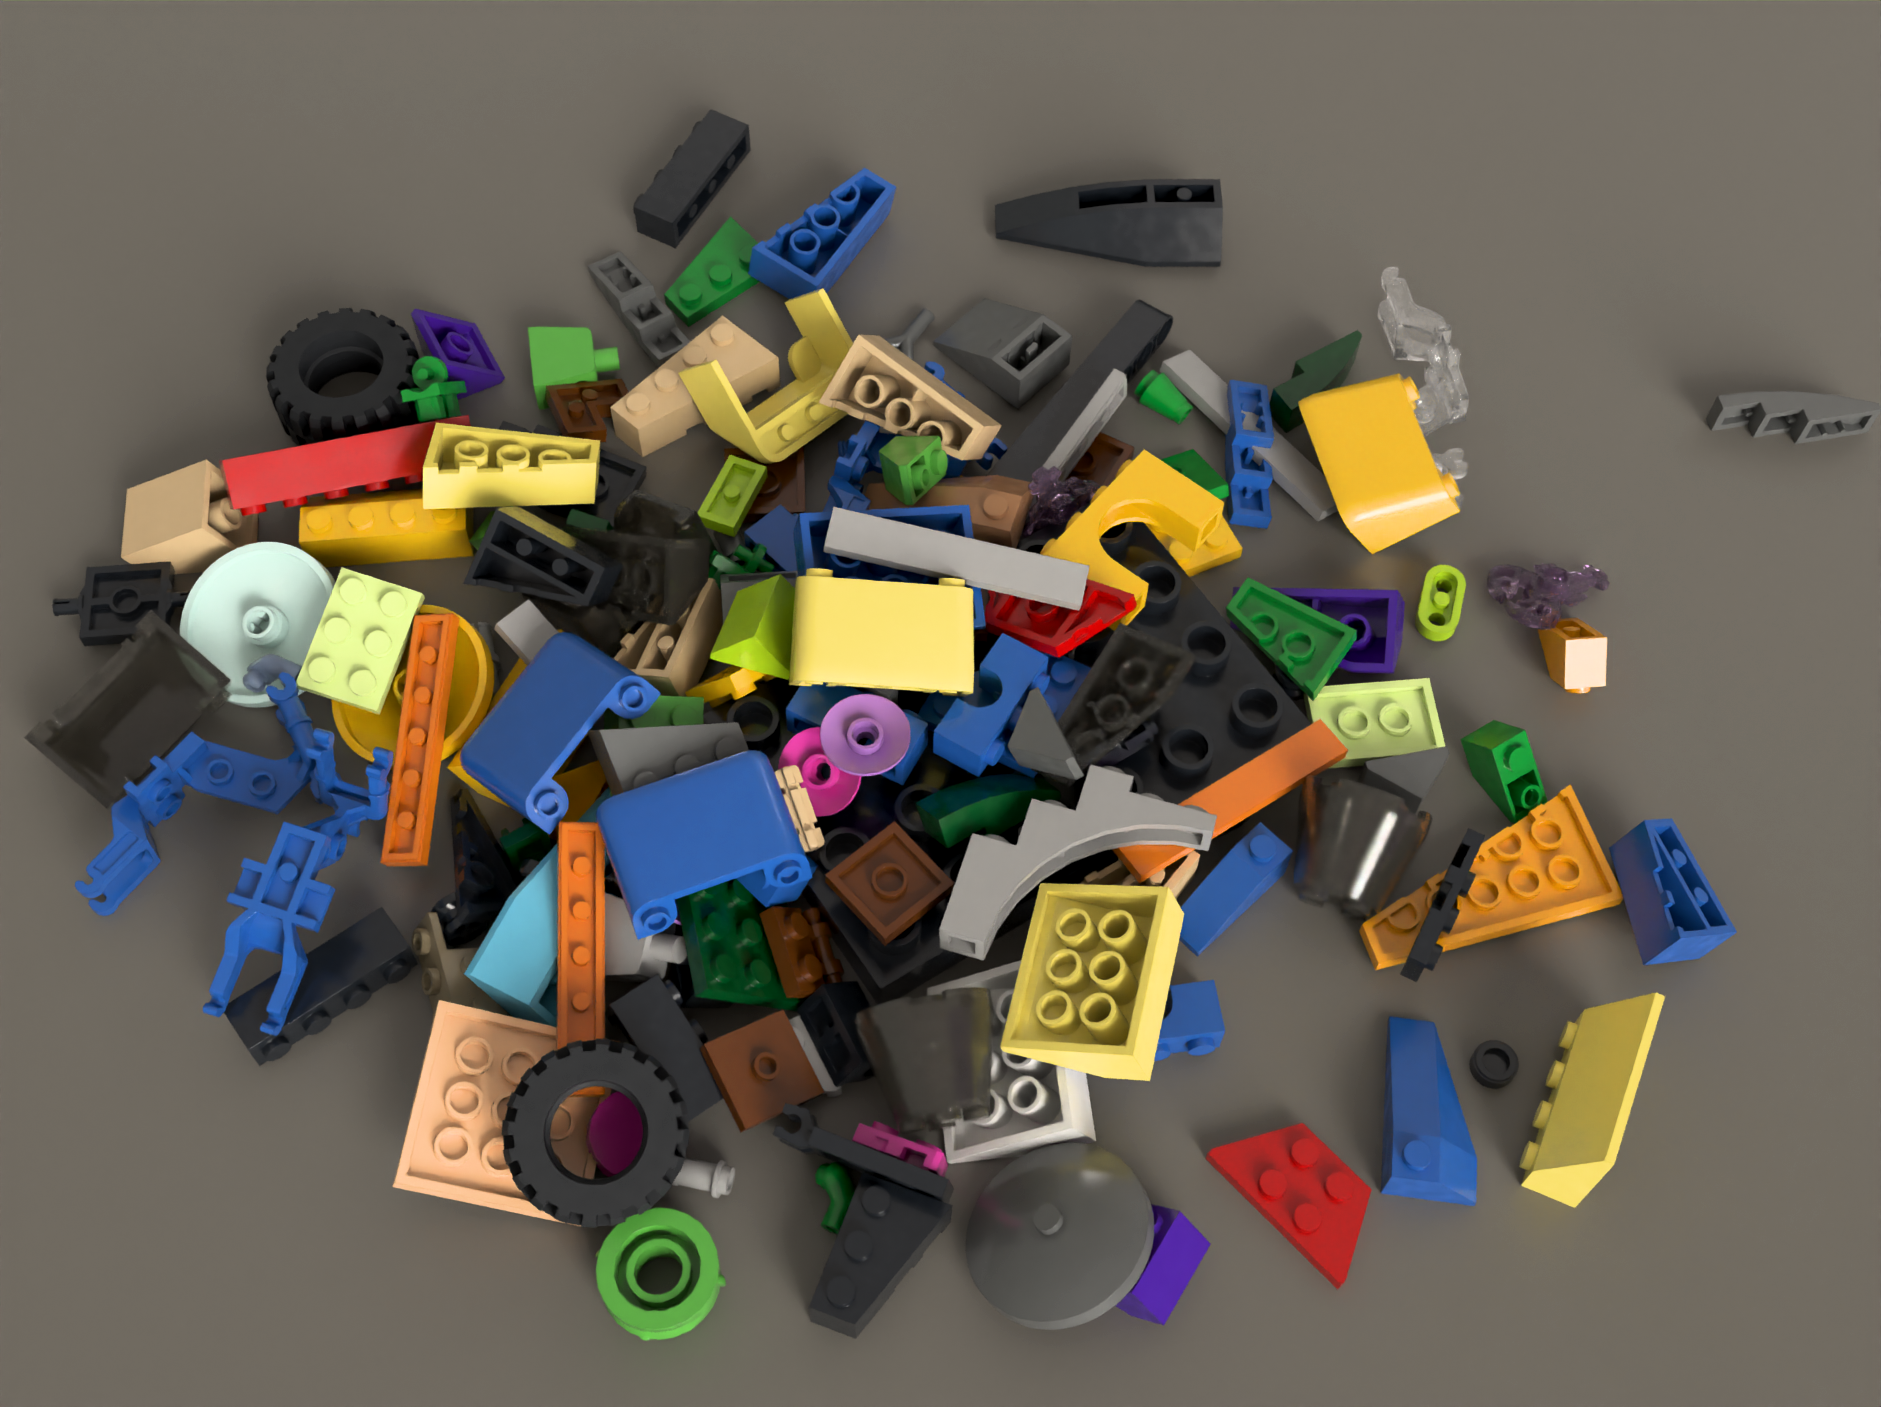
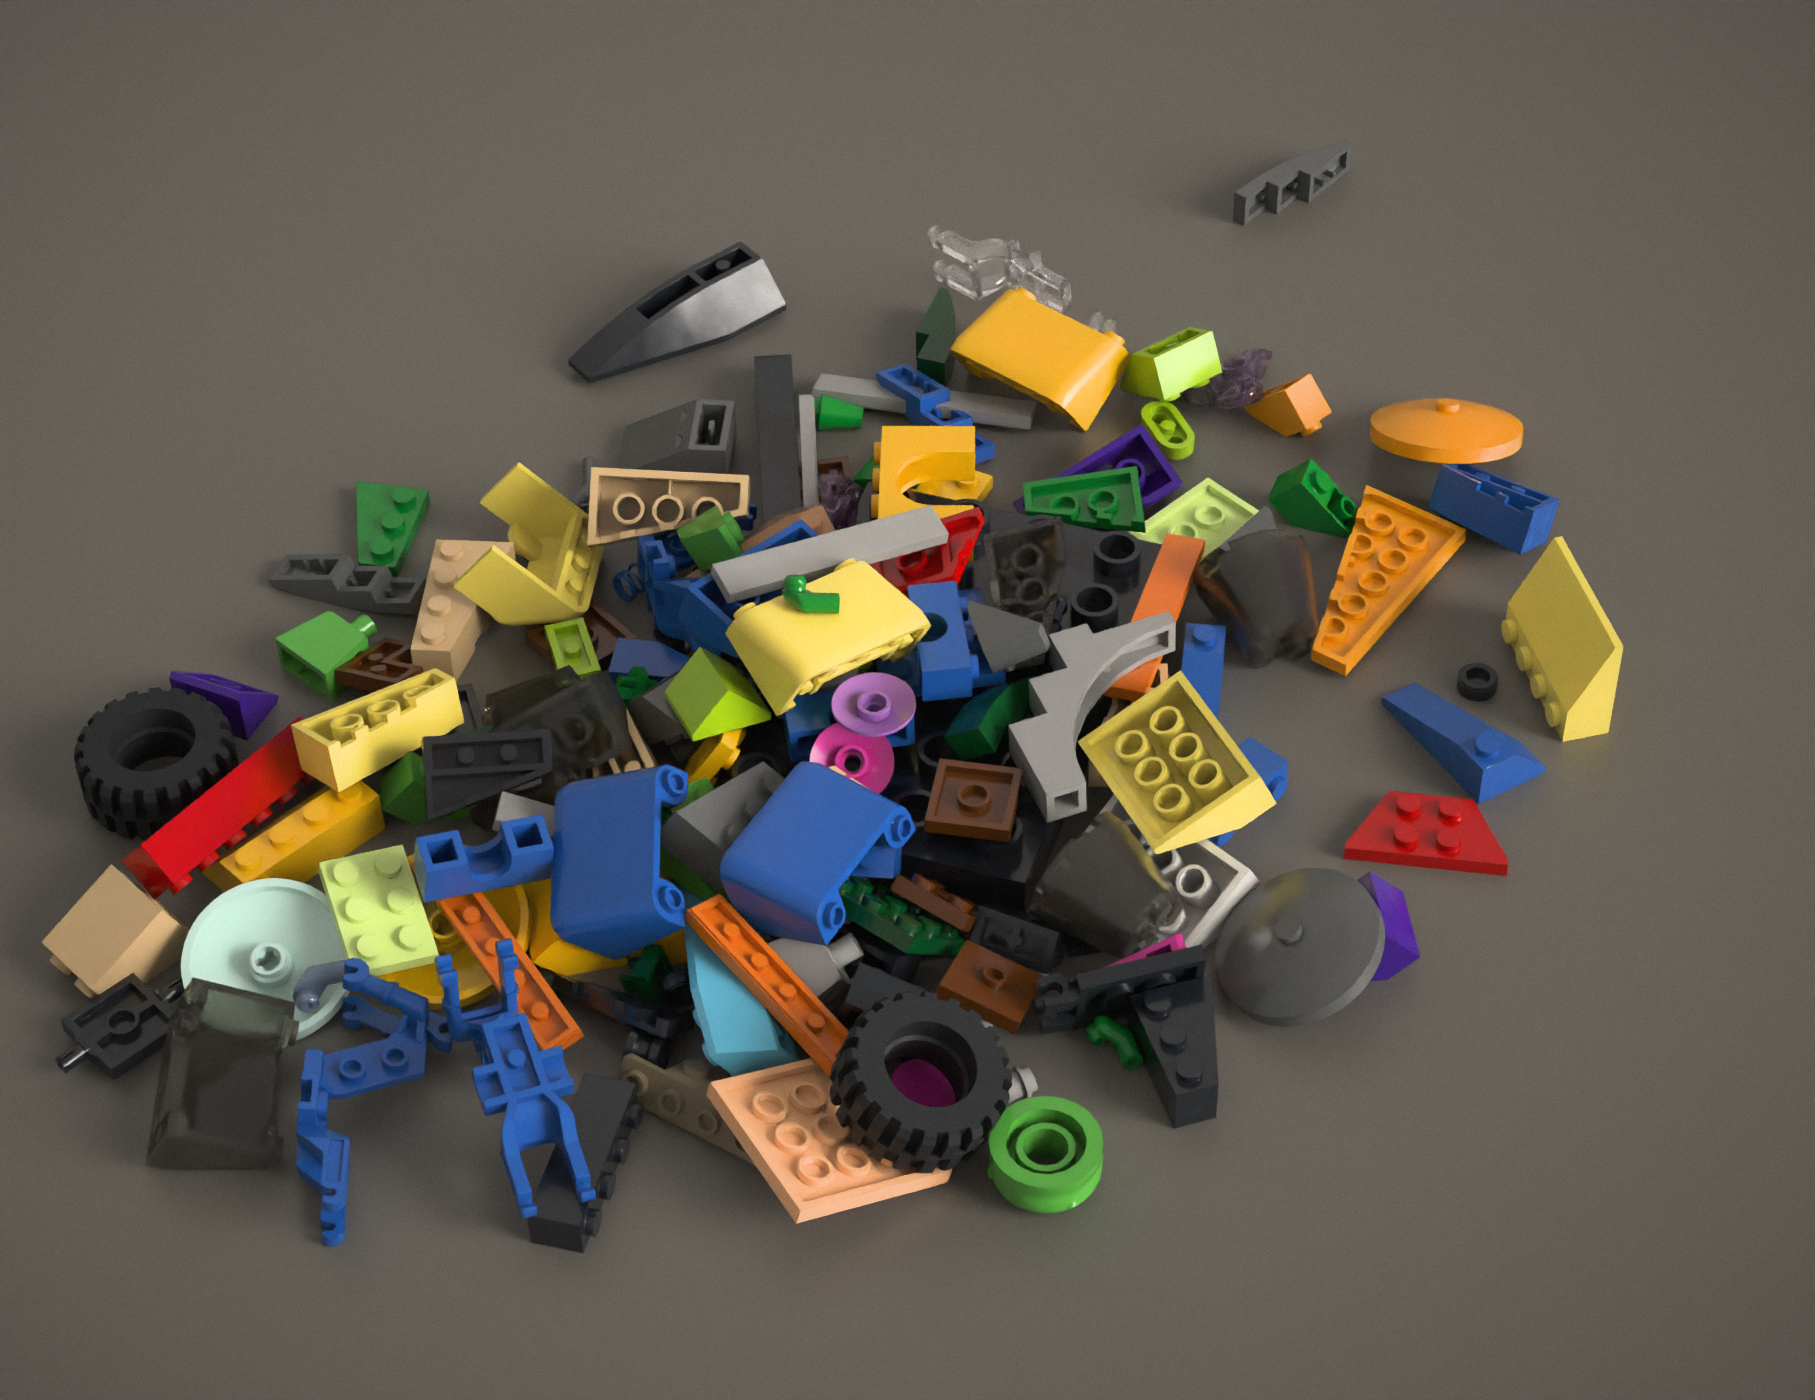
camera: 35 degrees left, 15 degrees down
(422, 648) = (514, 857): none -> blue arch
(434, 397) = (248, 717): green hips -> none
(692, 178) = (294, 470): black brick -> none
(825, 239) = (461, 452): blue wedge -> none
(865, 599) = (808, 601): none -> green arm
(1442, 913) = (1359, 595): black wing -> none
(1493, 544) = (1172, 365): none -> lime slope
(1694, 781) = (1446, 431): none -> light orange dish

